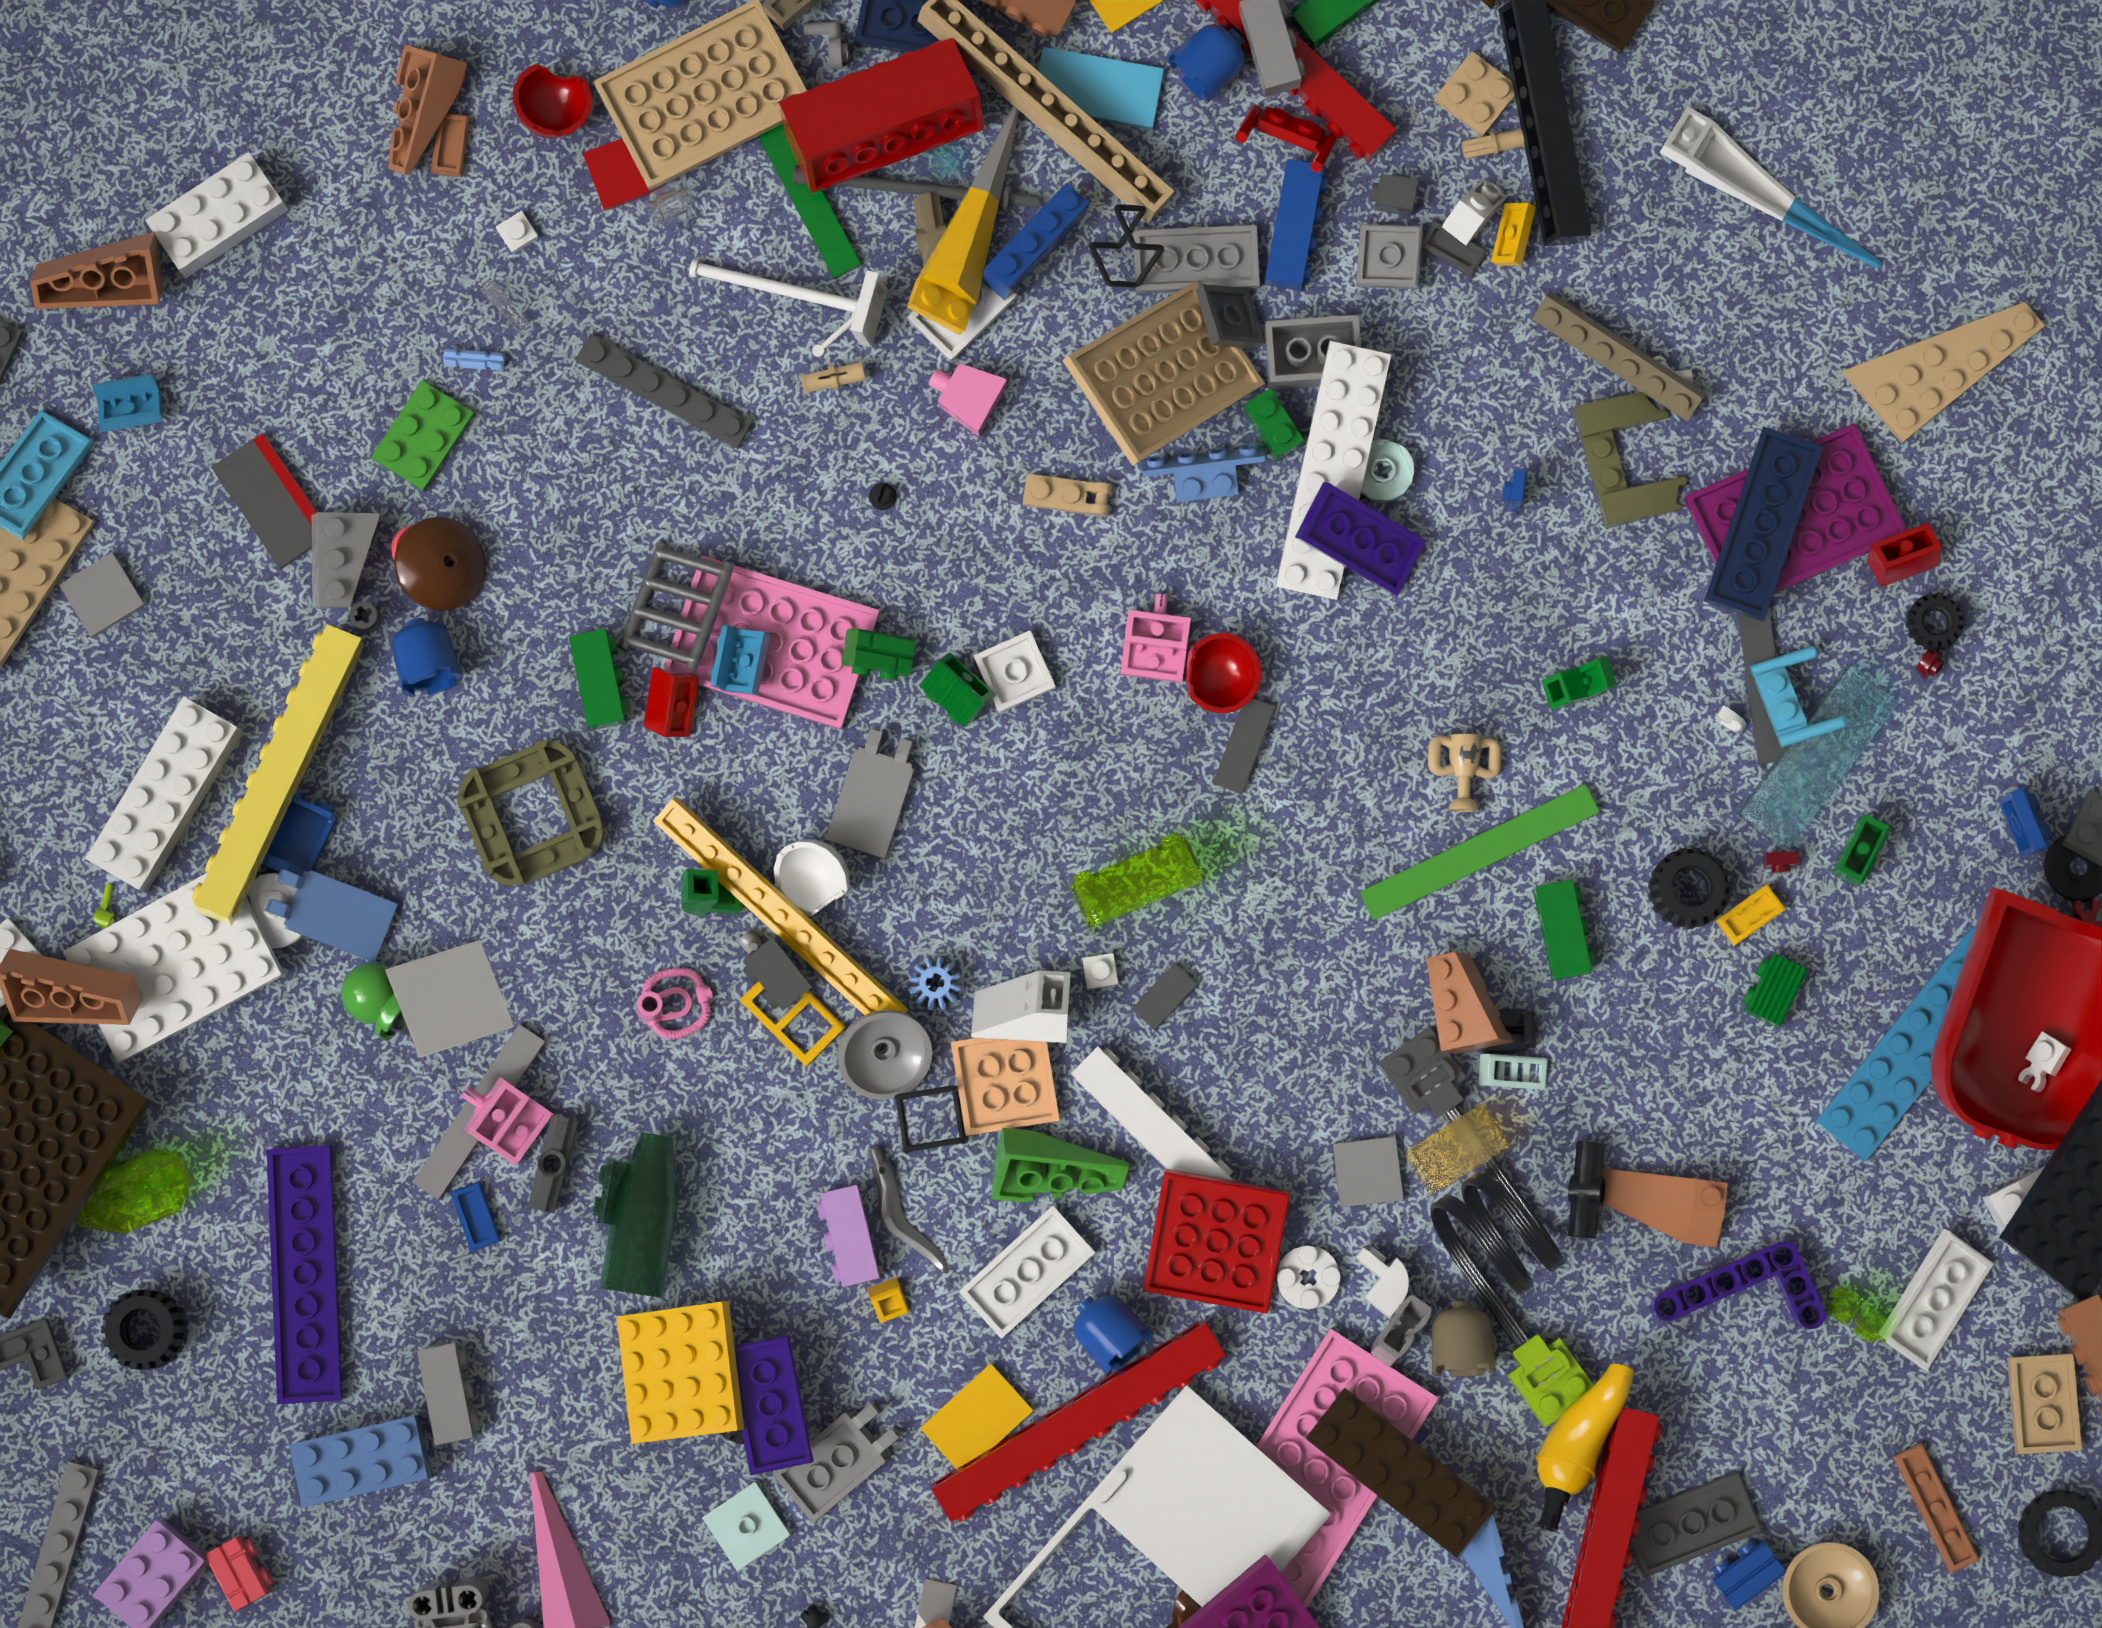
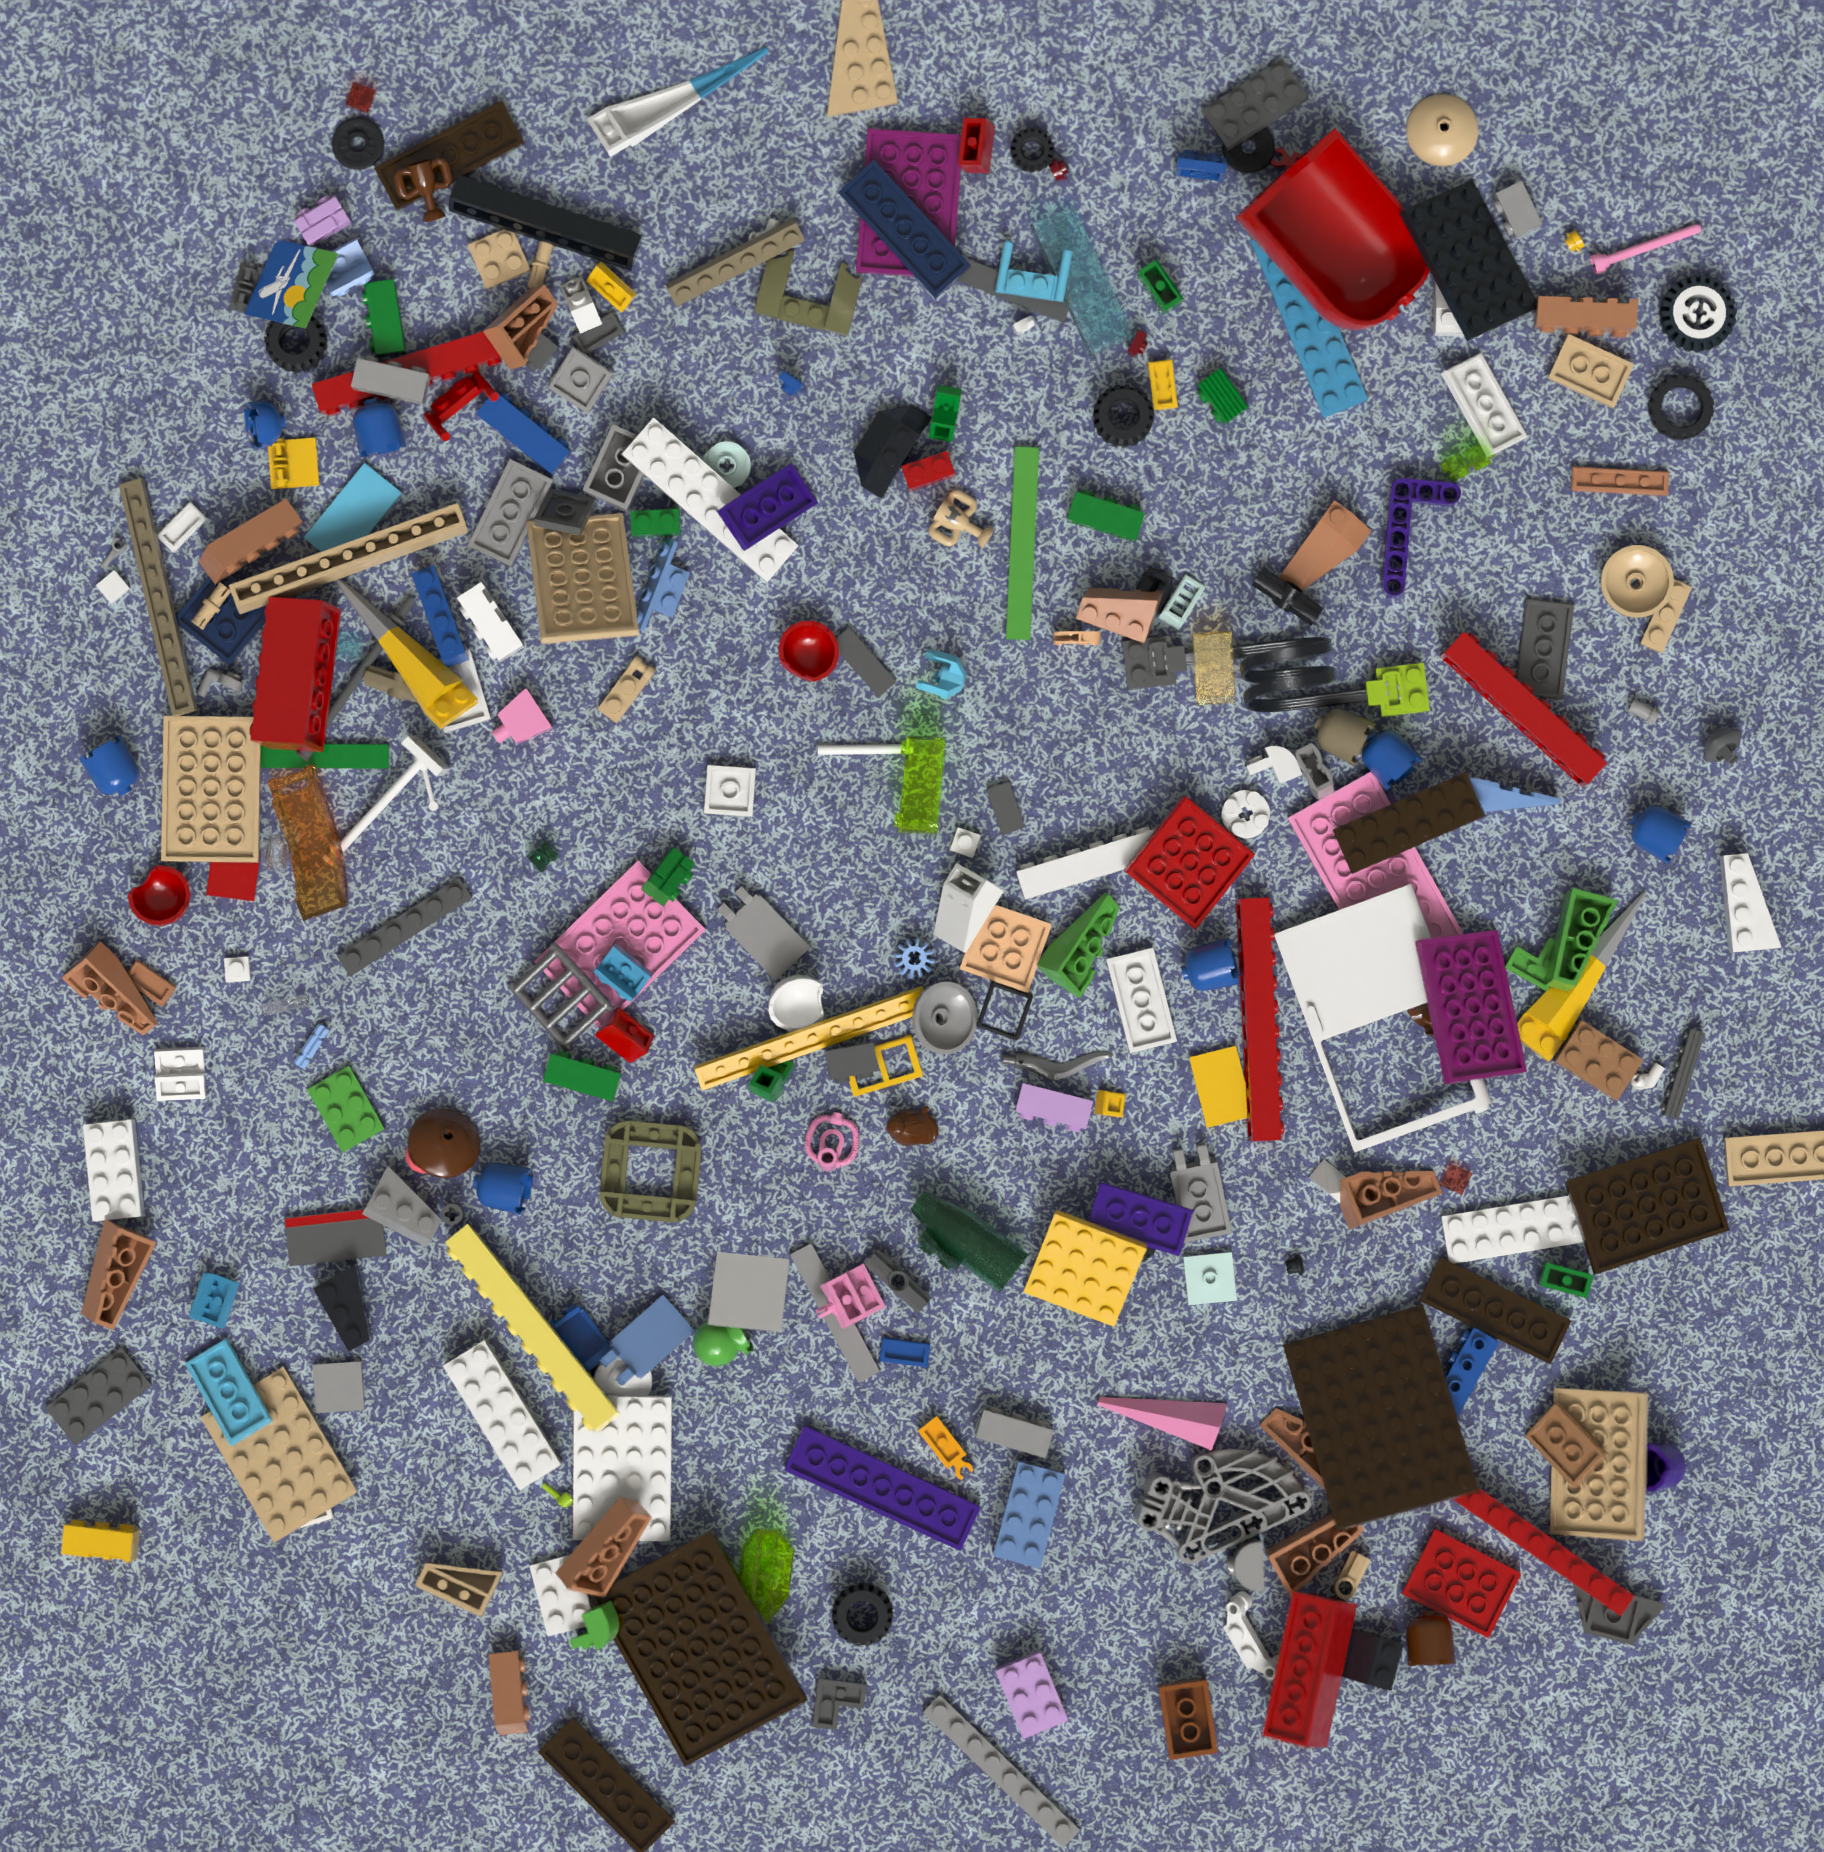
camera: 65 degrees left, 5 degrees up
(196, 554) = (346, 1307): none -> black wedge
(239, 1572) = (1059, 1634): coral brick -> none
(365, 231) = (180, 1073): none -> white slope
(390, 1321) = (944, 1445): none -> light orange plate
(702, 238) = (312, 844): none -> clear orange windscreen
(739, 1085) = (912, 1127): none -> reddish brown hair
(750, 941) = (818, 1068): light grey hand -> none
(826, 501) = (542, 856): none -> clear green wheel
(833, 377) = (462, 789): tan pin -> none
(882, 496) = (559, 815): black piece -> none
(956, 690) = (722, 837): green brick -> none
(1059, 300) = (489, 623): none -> white wedge
(1126, 236) = (468, 551): black piece -> none
(1140, 791) = (859, 749): none -> white bar
(1155, 644) = (763, 685): bright pink plate -> none
(1278, 850) = (949, 678): none -> medium azure piece
(1367, 1172) = (1196, 736): light grey tile -> none
(1405, 972) = (1077, 637): none -> light nougat piece
(1410, 153) = (520, 325): none -> nougat wedge
(1464, 1409) = (1389, 757): none -> blue cylinder
(1502, 700) = (928, 471): none -> red brick
(1505, 640) = (887, 446): none -> black wedge
(1576, 1442) = (1450, 694): yellow animal -> none
(1746, 1574) = (1596, 630): blue brick -> none
(2046, 1057) = (1364, 241): white plate -> none

